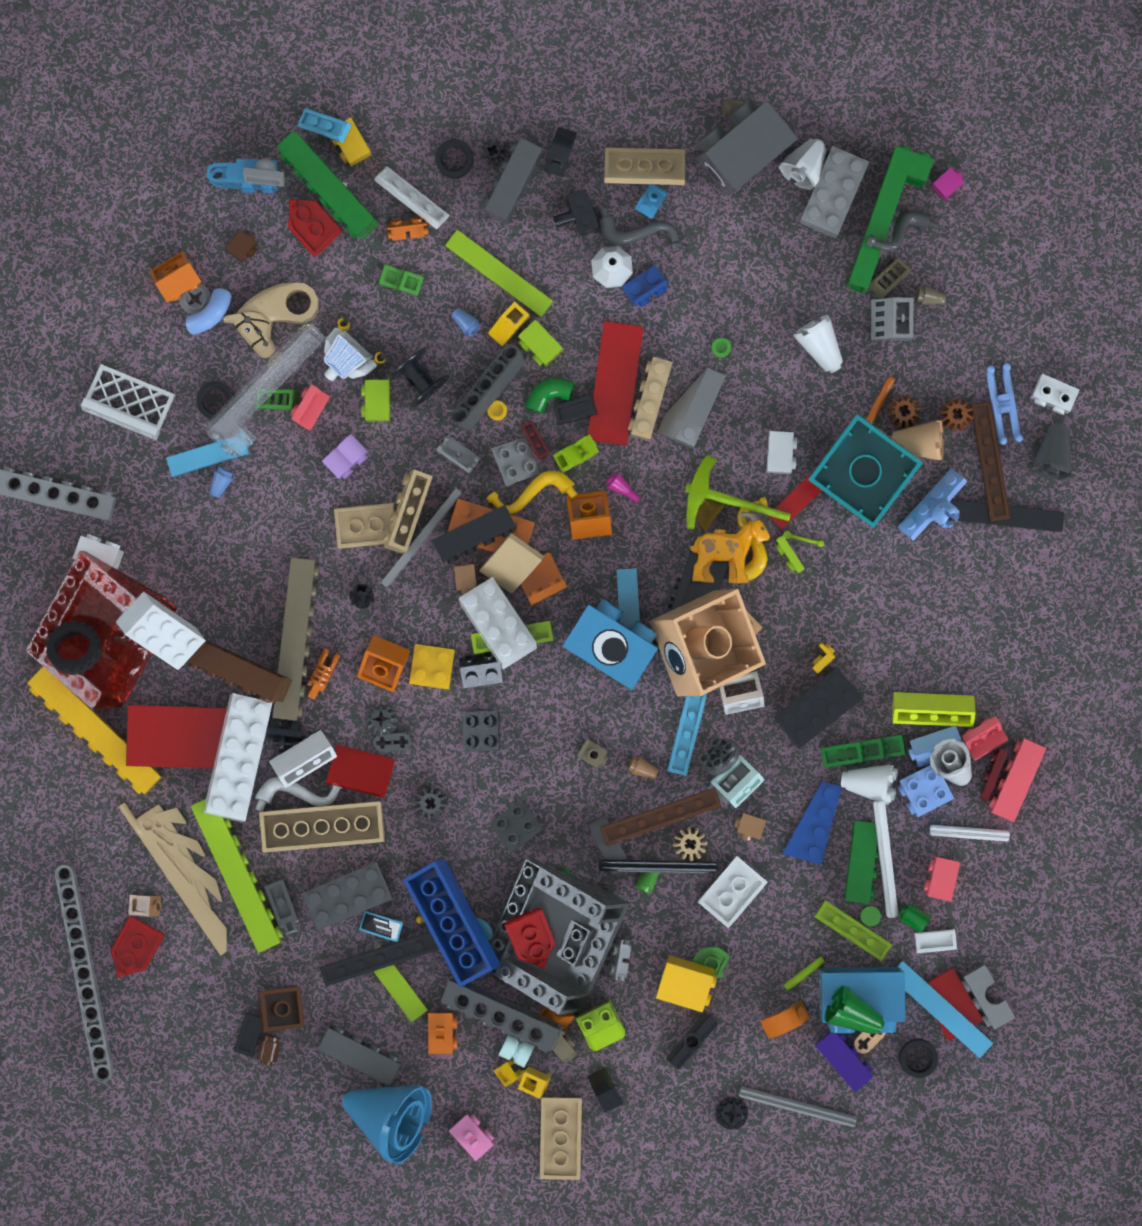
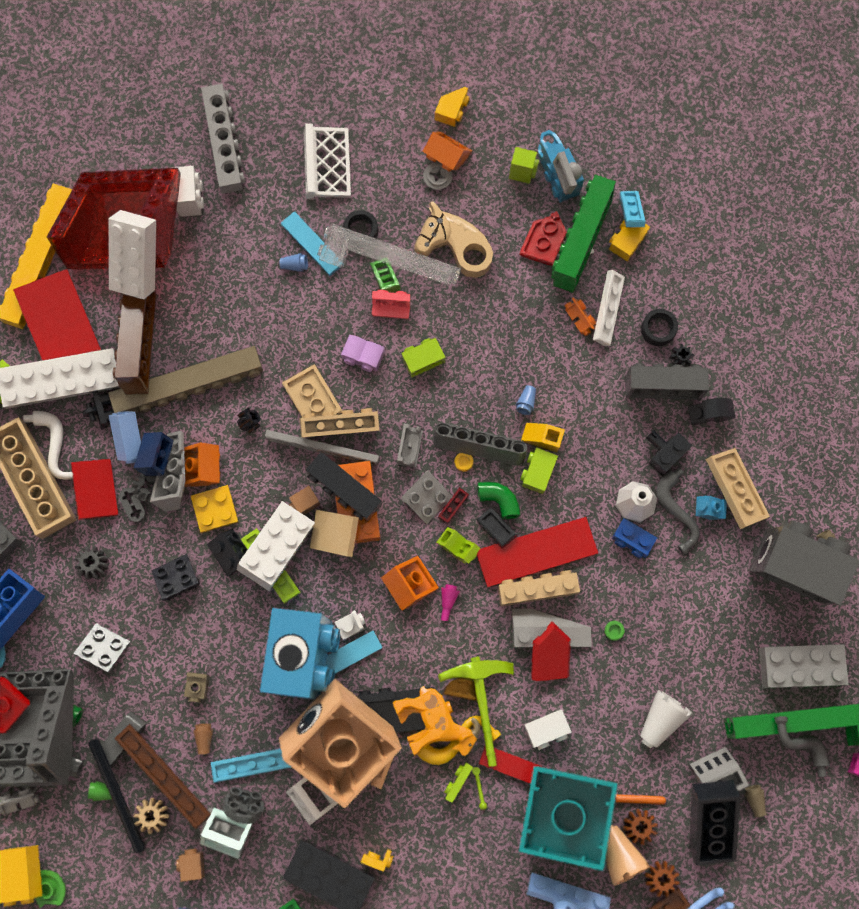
camera: 65 degrees right, 10 degrees down
(81, 664) = (99, 186): black tyre -> none
(129, 251) = (450, 107): none -> yellow slope
(211, 313) = (431, 192): light blue cylinder -> none
(228, 209) = (523, 165): none -> lime brick
(242, 246) = (499, 192): reddish brown brick -> none
(303, 758) = (82, 434): white brick -> none
(321, 674) = (165, 418): orange hinge -> none
(324, 718) = (125, 435): none -> light blue brick
(346, 355) = (449, 314): white torso -> none
(355, 699) = (153, 454): none -> dark blue brick
(380, 690) = (169, 489): none -> light grey wedge
(400, 280) = (535, 331): bright green slope -> none
(418, 377) = (459, 379): black piece -> none
(499, 273) = (581, 410): lime tile -> none
(543, 581) = (333, 569): orange bracket -> none
(546, 478) = (428, 536): yellow animal -> none
(601, 587) = (350, 624): none -> white bracket
(716, 416) = (551, 655): none -> red tile
(732, 892) = (123, 878): white plate -> none
(805, 164) = (813, 627): white cone -> none
(880, 287) = (740, 750): dark tan slope -> none
(930, 345) = (714, 822): none -> black brick

